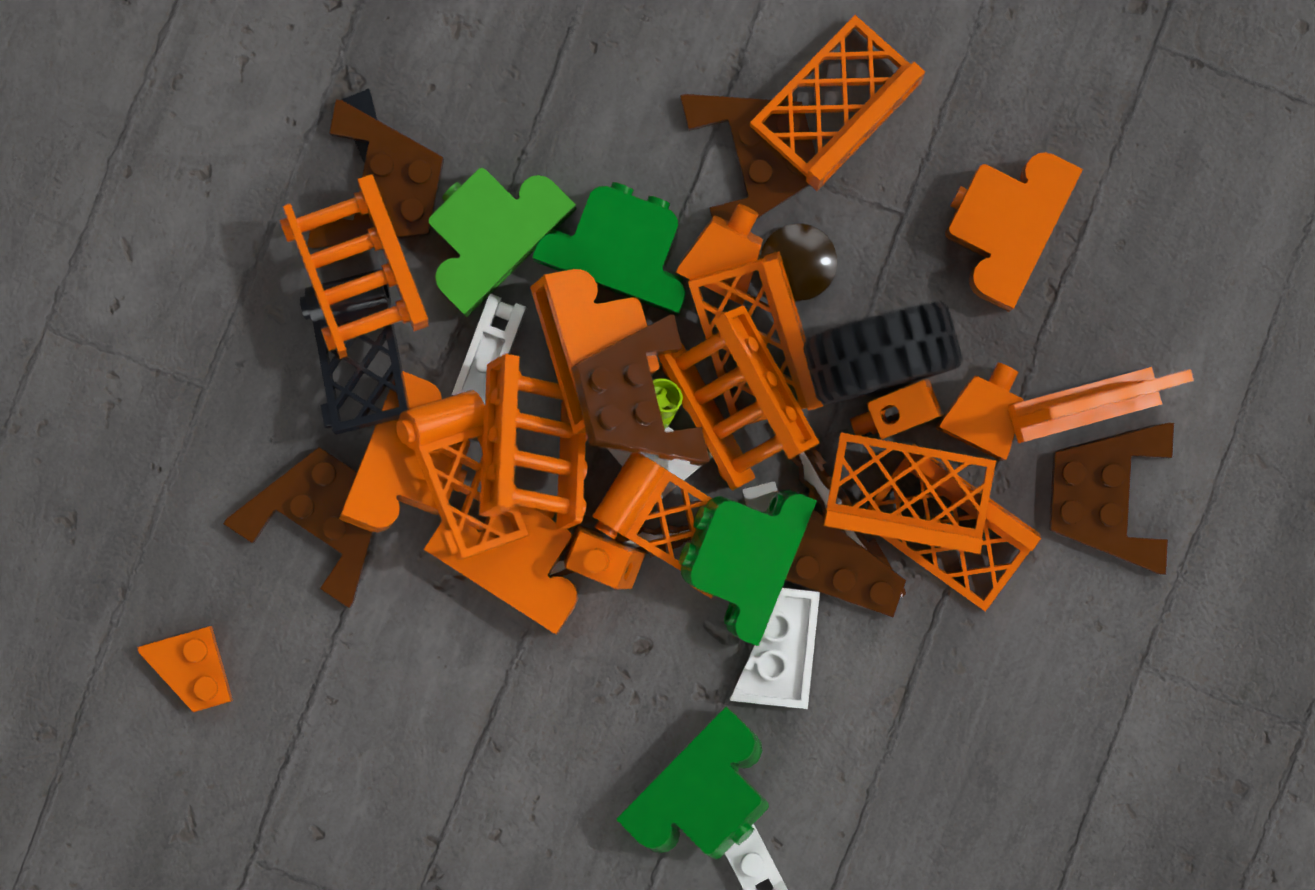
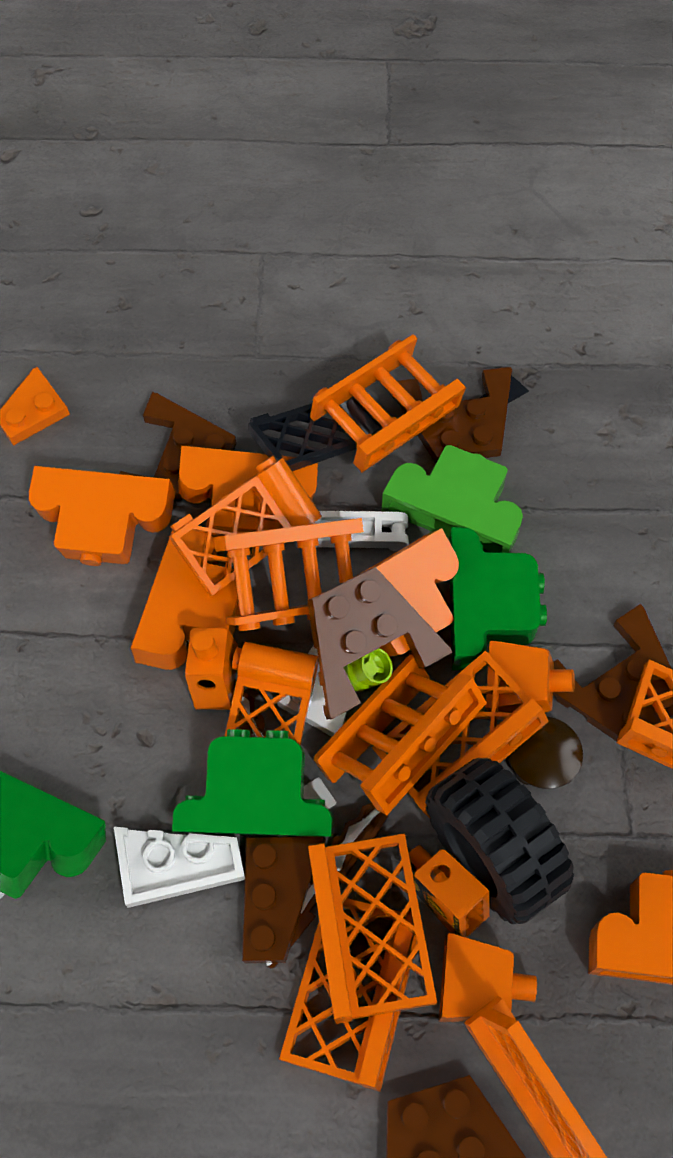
camera: 70 degrees right, 25 degrees down
(372, 625) = (99, 510): none -> orange brick

